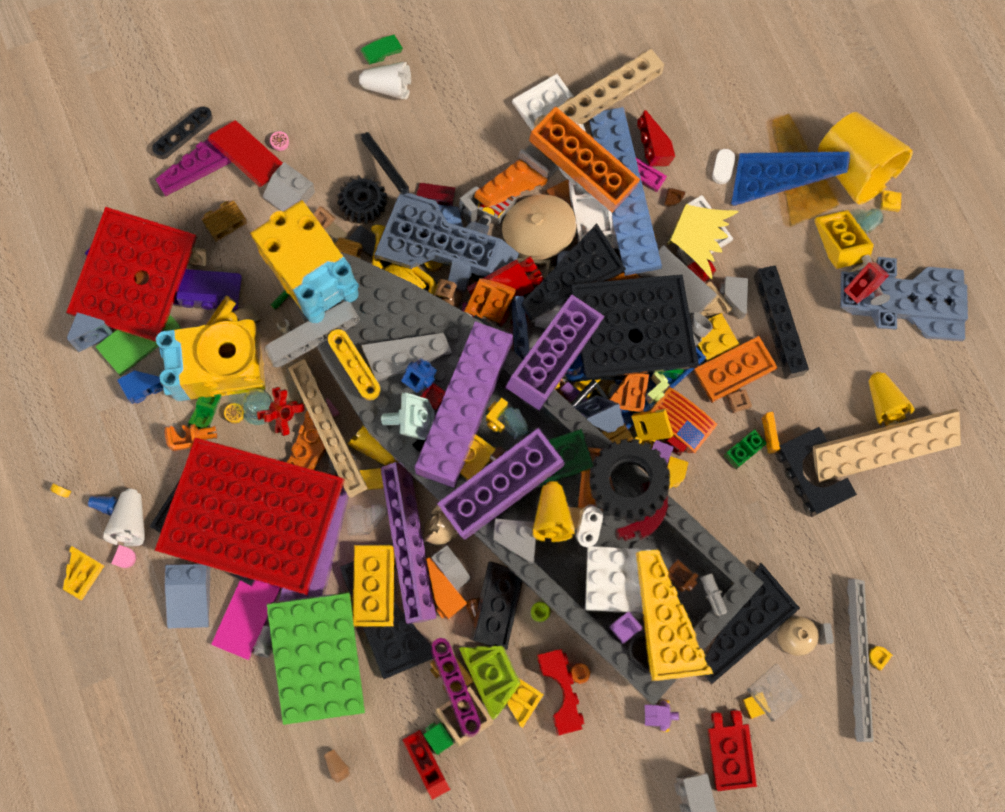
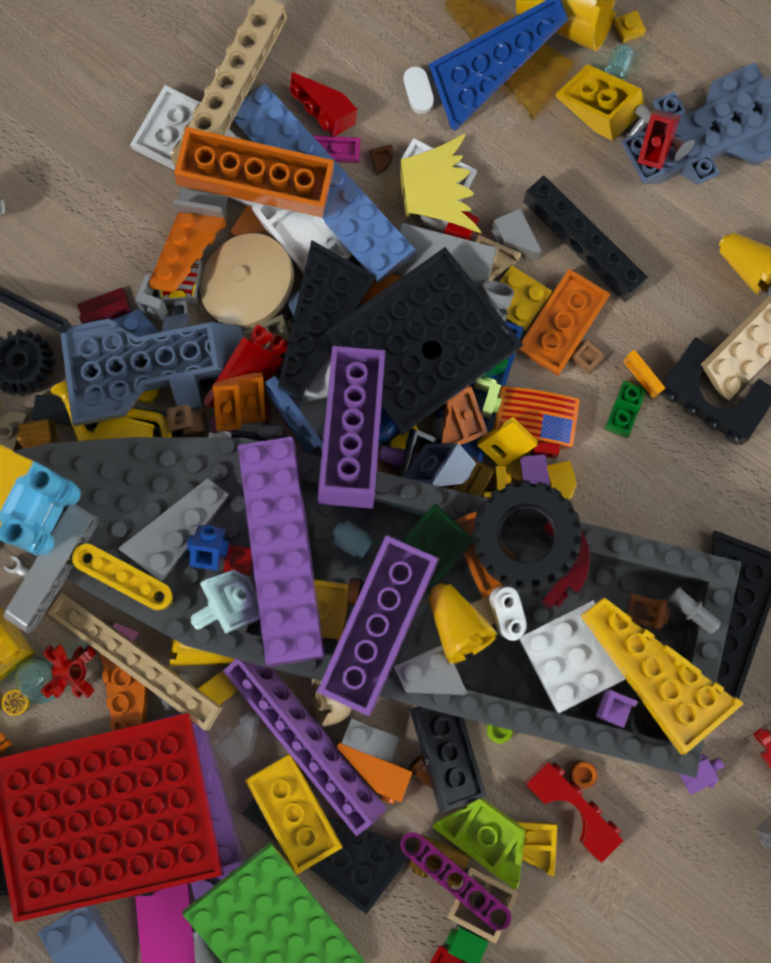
camera: 20 degrees left, 5 degrees up
(496, 410) = (322, 537): yellow bracket -> none

